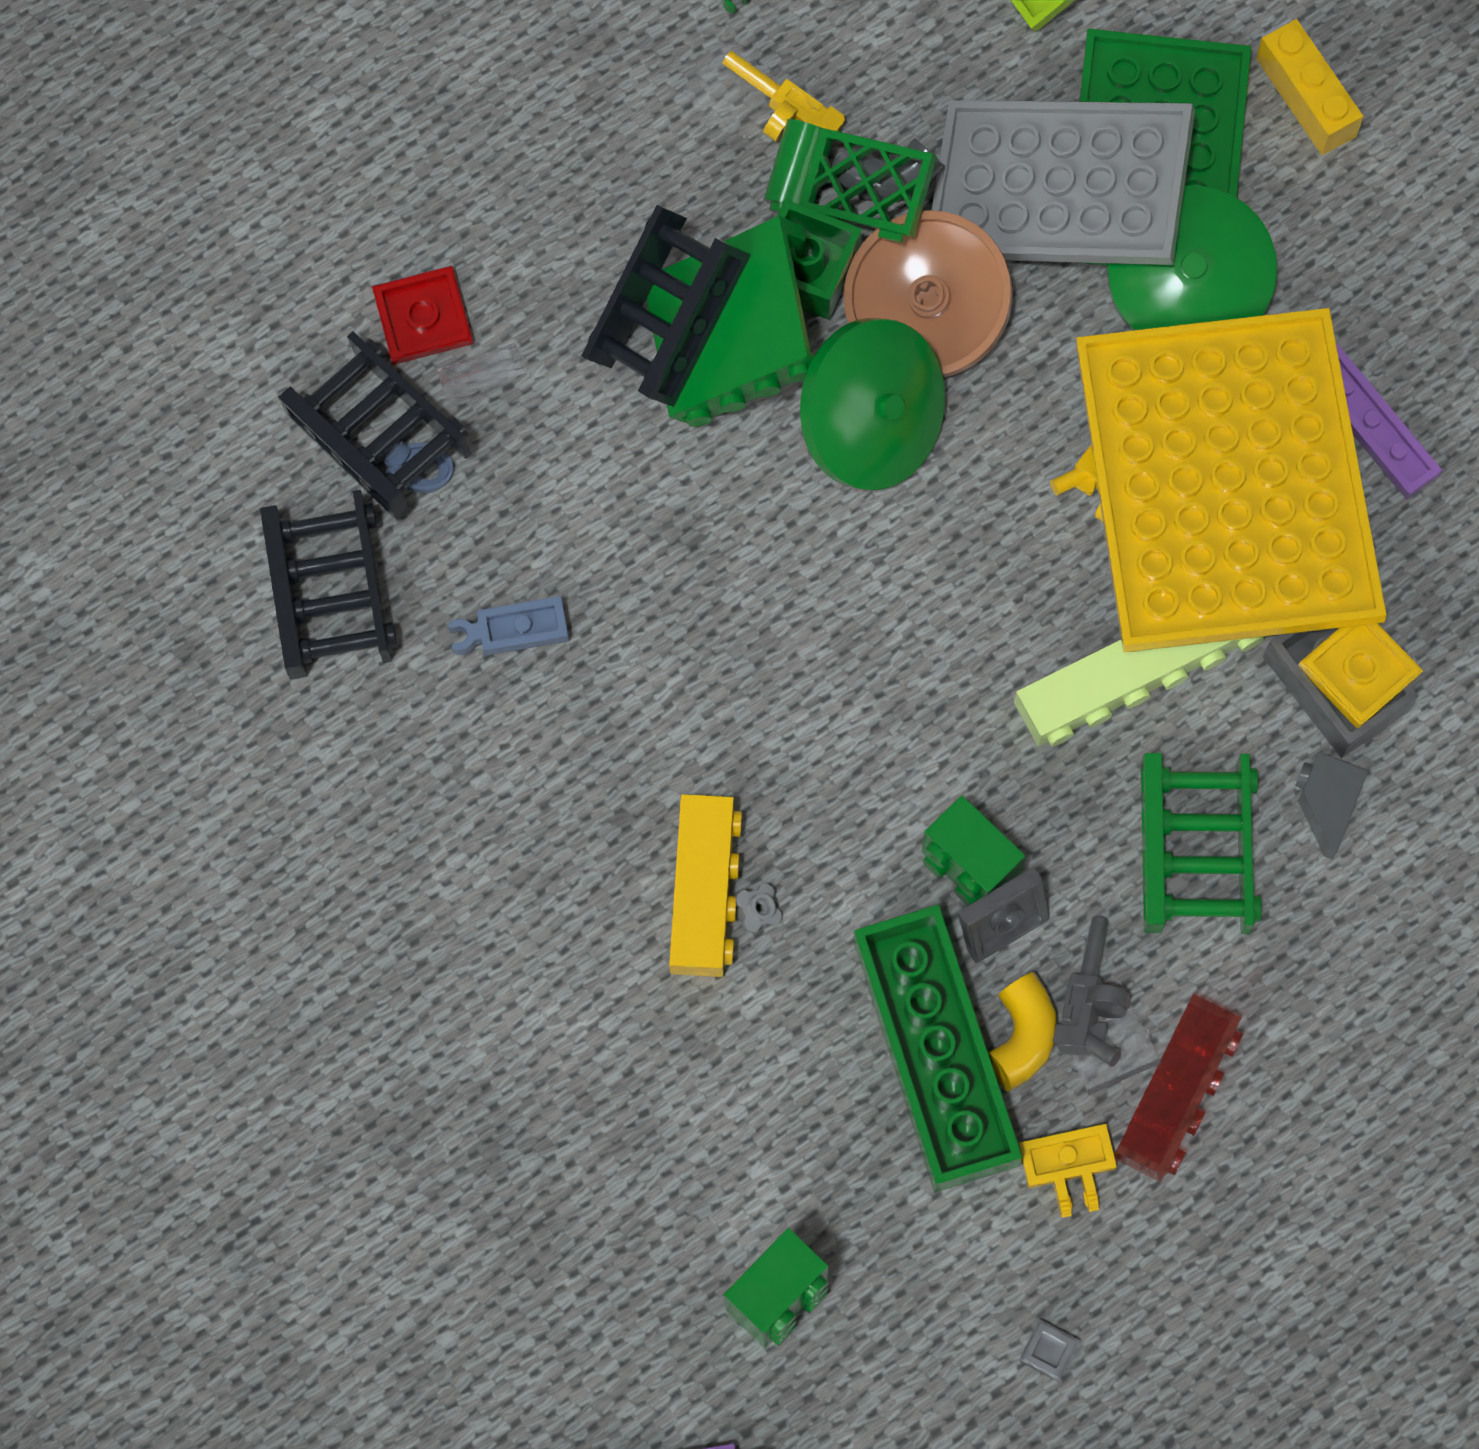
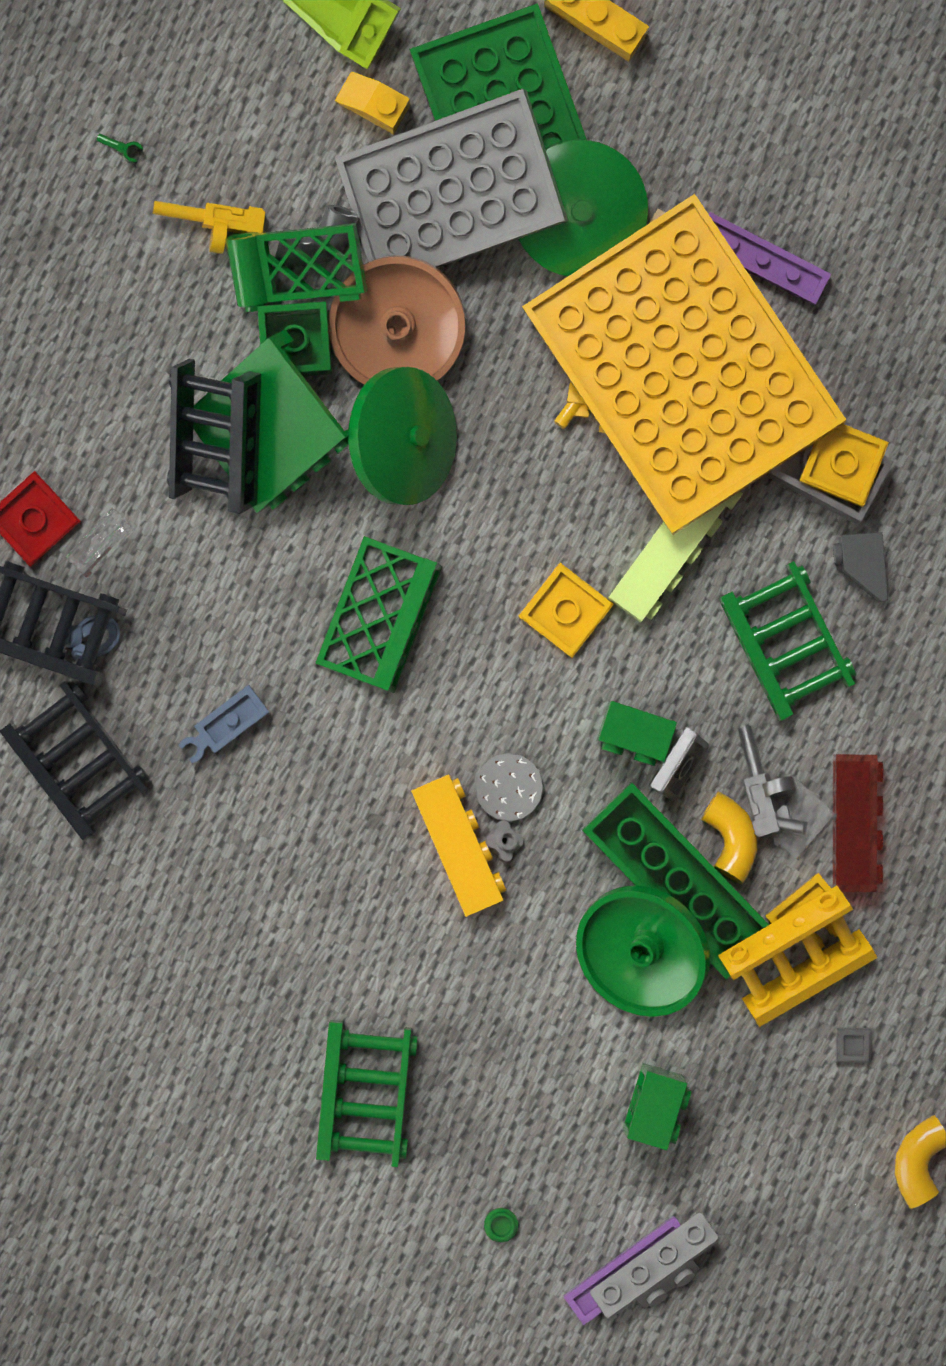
camera: 30 degrees left, 15 degrees up
(427, 1074) = (338, 1073): none -> green fence
(524, 1351) = (501, 1225): none -> green plate
(777, 611) = (407, 622): none -> green fence
(794, 853) = (508, 787): none -> light grey tile
(854, 1104) = (643, 951): none -> green dish
(959, 691) = (565, 610): none -> yellow tile
(1023, 65) = (373, 101): none -> yellow slope
(1034, 1241) = (810, 976): none -> yellow fence

